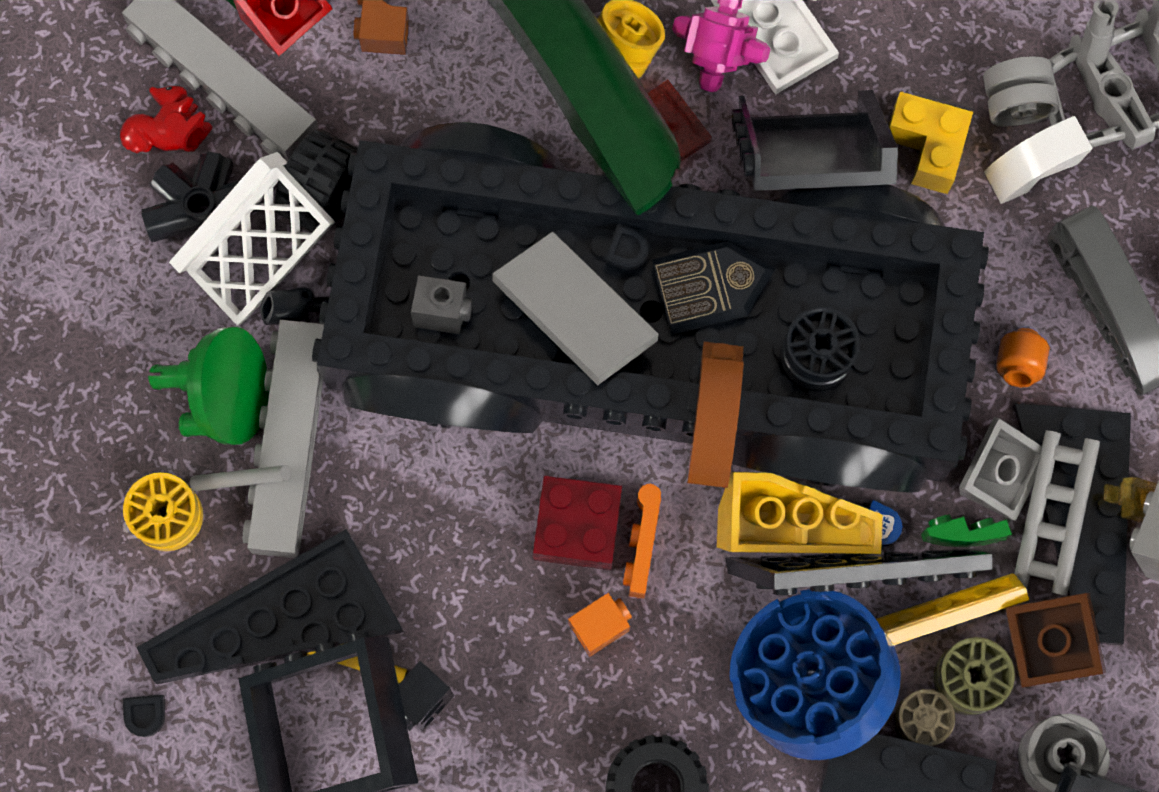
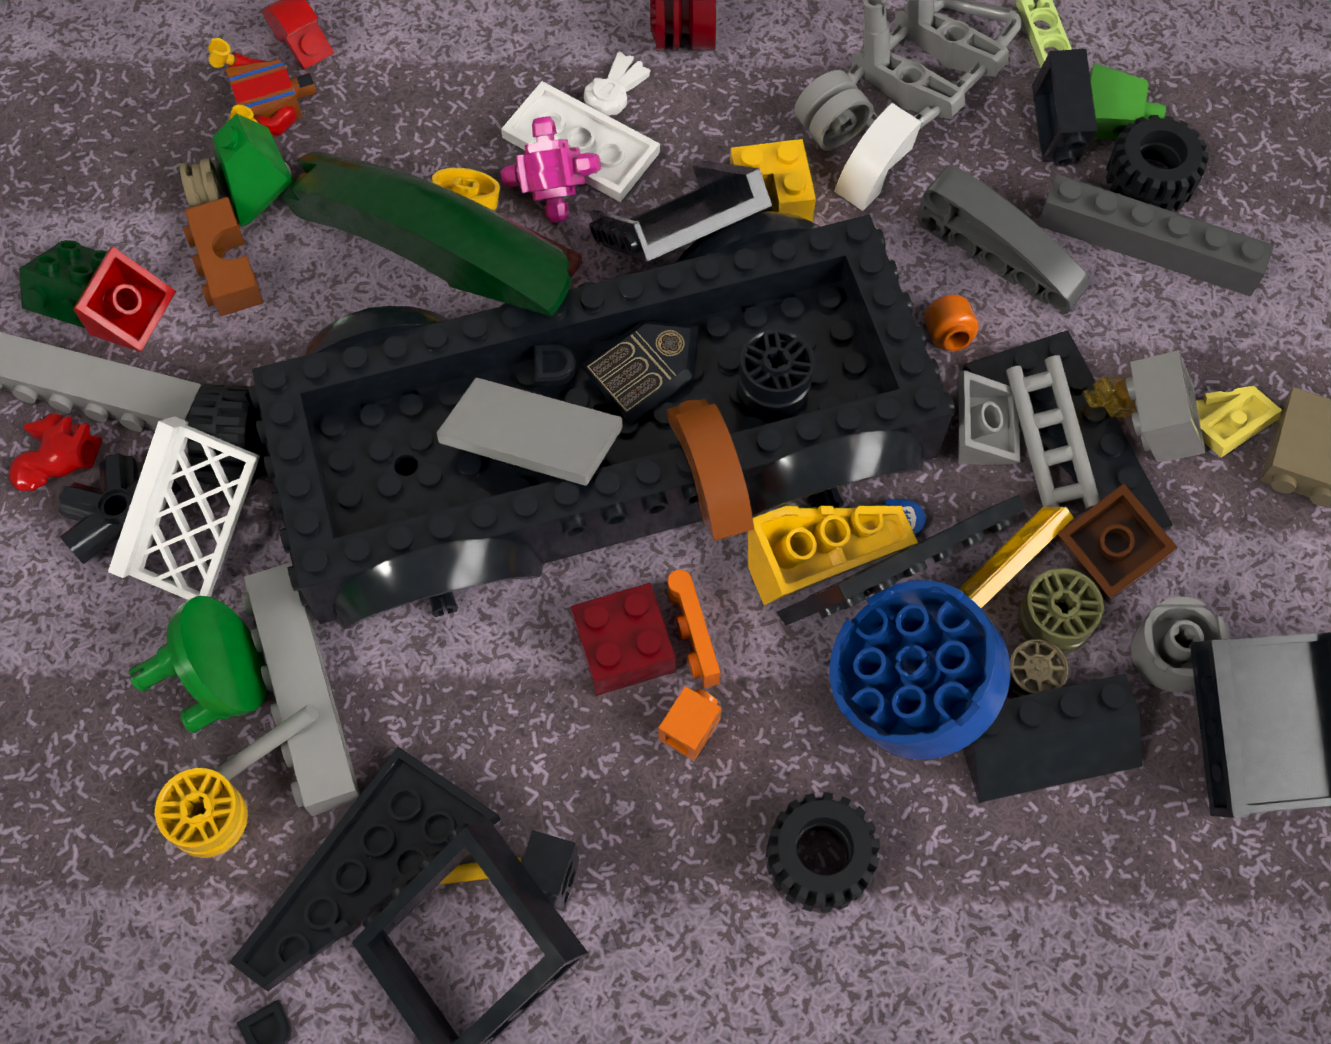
camera: 25 degrees left, 10 degrees down
(289, 305) = (248, 559): black piece -> none
(440, 305) = (398, 485): flat silver brick -> none
(955, 532) = (979, 493): green slope -> none

